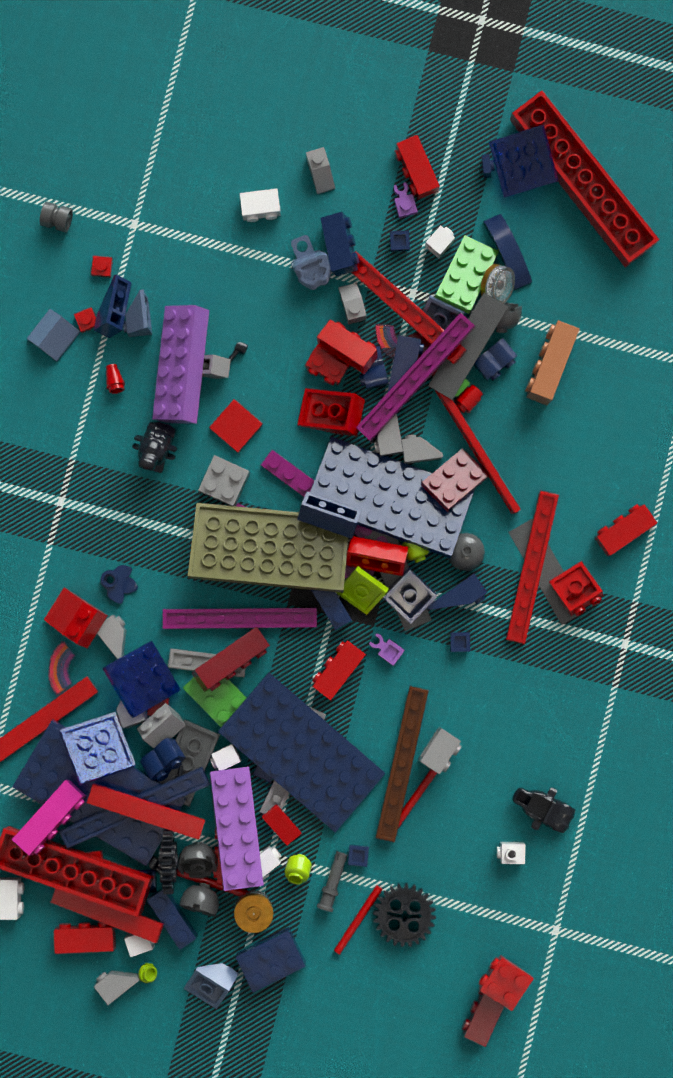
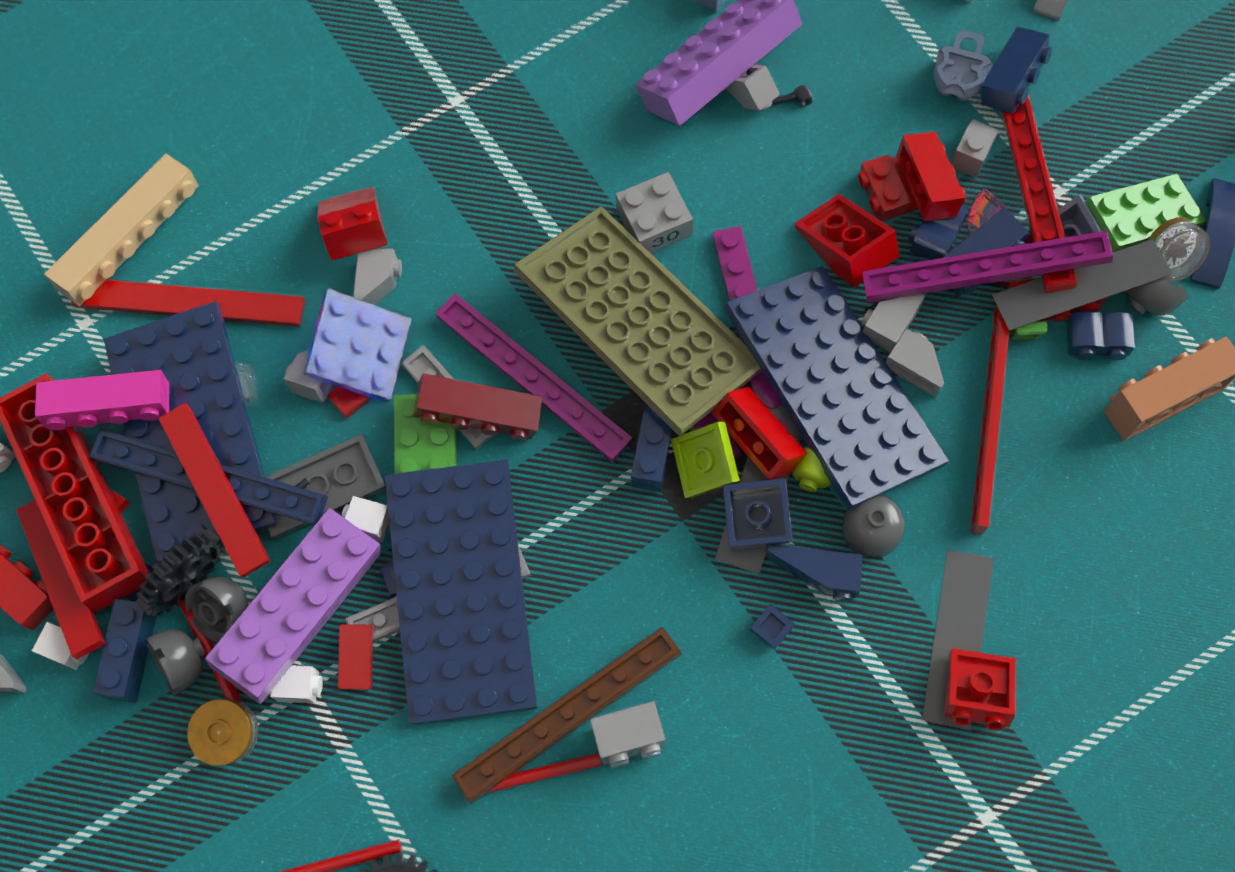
camera: 45 degrees right, 15 degrees down
(59, 668) = (283, 265): clear pink tile -> none
(97, 748) = (231, 371): clear blue plate -> none
(114, 380) = (631, 21): red cone -> none
(121, 584) = (437, 232): dark blue plate -> none
(147, 973) = (34, 692): lime plate -> none
(155, 446) = (609, 114): black piece -> none
(161, 725) = (327, 416): light grey brick -> none
(162, 759) = (292, 453): dark blue brick -> none
(212, 983) = (92, 774): sand blue slope -> none
(236, 425) = (722, 171): red tile -> none
(270, 959) = (185, 811): dark blue brick -> none
(298, 869) = (322, 727): lime head -> none
(329, 515) = (743, 333): dark blue brick -> none
(330, 890) = (337, 791): dark grey pin -> none
(338, 669) = (593, 531): red brick -> none
(358, 855) = (410, 779): dark blue plate -> none
(389, 651) = (675, 561): medium lavender plate -> none
(399, 241) = (1090, 122): dark blue plate -> none
(405, 203) = (1131, 90): medium lavender plate -> none
(416, 167) = (1178, 62): red brick -> none
(440, 241) = (1140, 157): white brick -> none
(454, 479) = (932, 427): plate -> none
(468, 399) = (1029, 353): red brick -> none
(532, 567) = (942, 616): red tile -> none
(625, 529) = (1108, 668): red brick -> none

